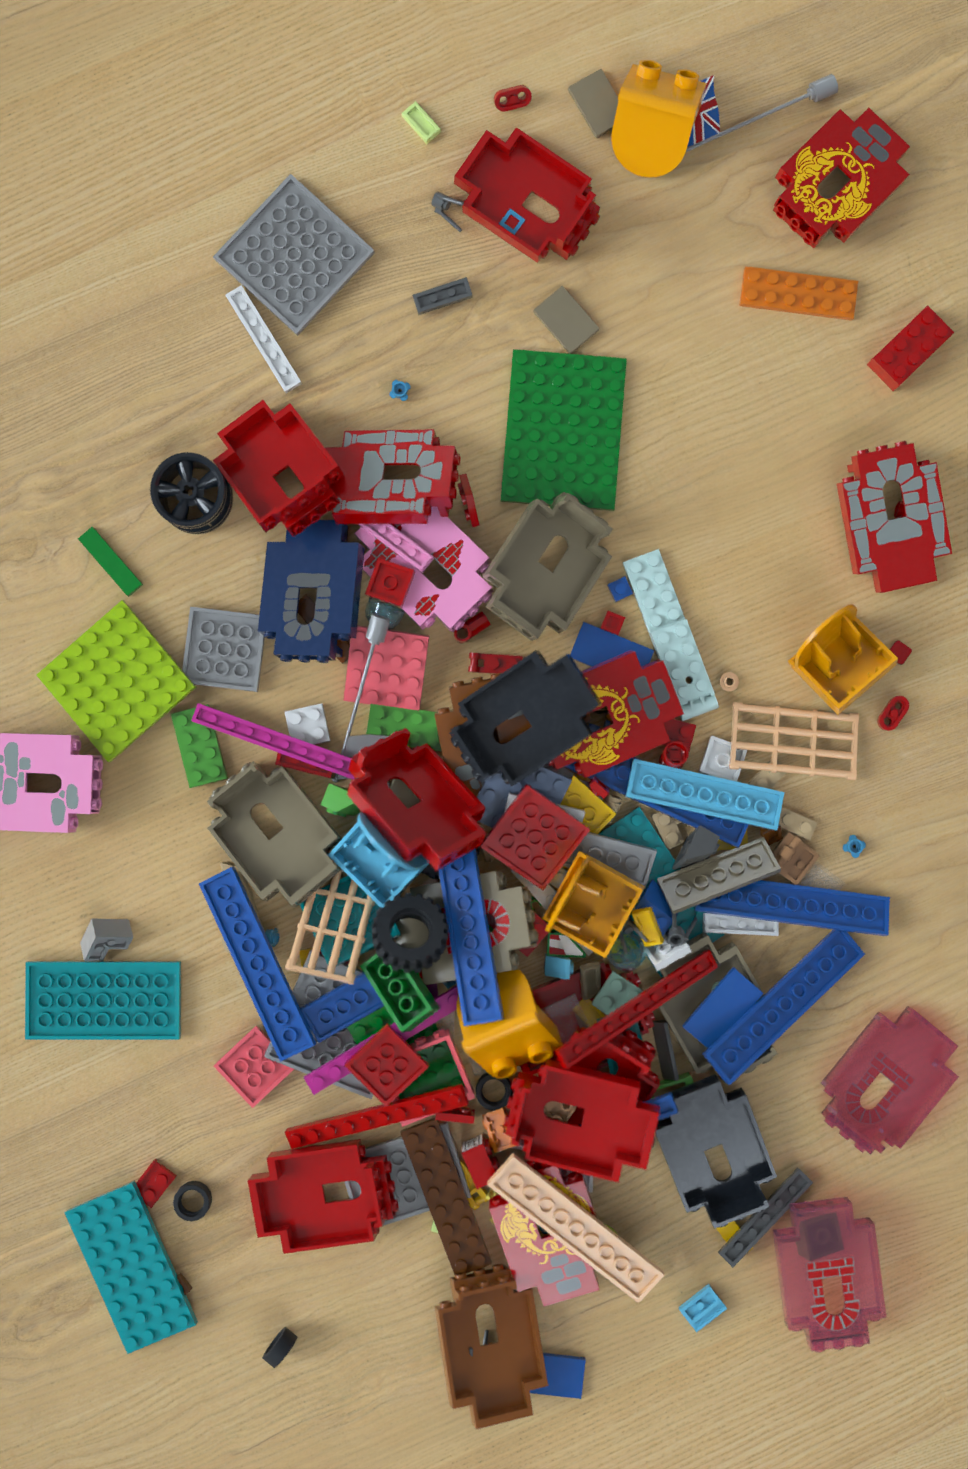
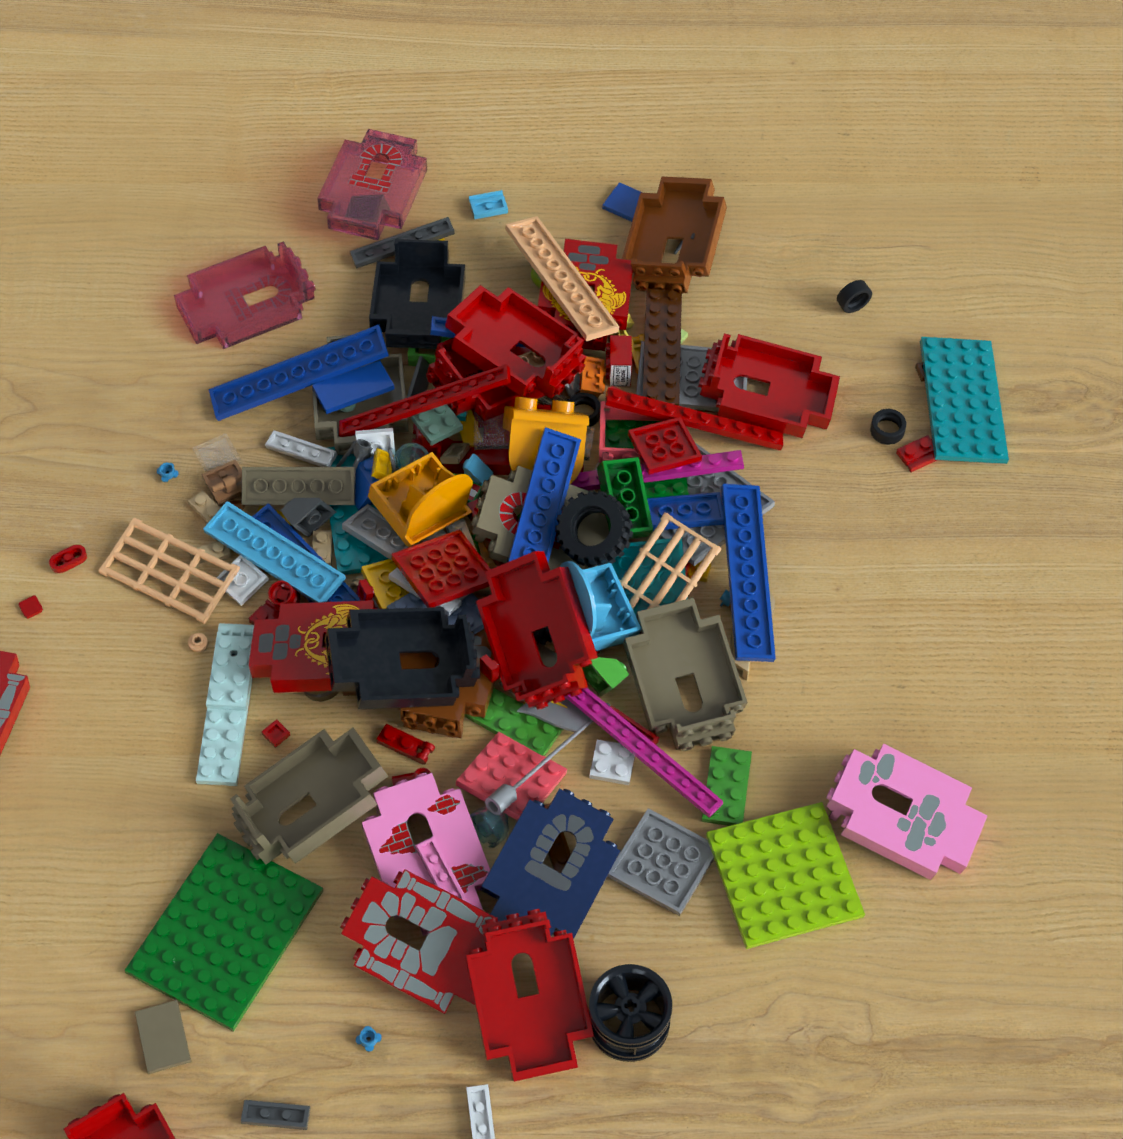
camera: 160 degrees left, 30 degrees down
(103, 1000) = (908, 607): teal plate -> none
(105, 935) = (885, 655): light grey panel -> none
(110, 561) = (745, 994): green tile -> none
(249, 1070) = (794, 505): coral plate -> none
(390, 582) = (469, 838): red plate -> none
(446, 753) = (489, 668): none -> red plate
(468, 499) = (353, 890): red plate -> none
(597, 645) = (293, 711): blue tile -> none
(620, 589) = (252, 761): blue plate -> none
(804, 907) = (232, 435): blue plate -> none
(842, 659) = (86, 611): light orange plate -> none

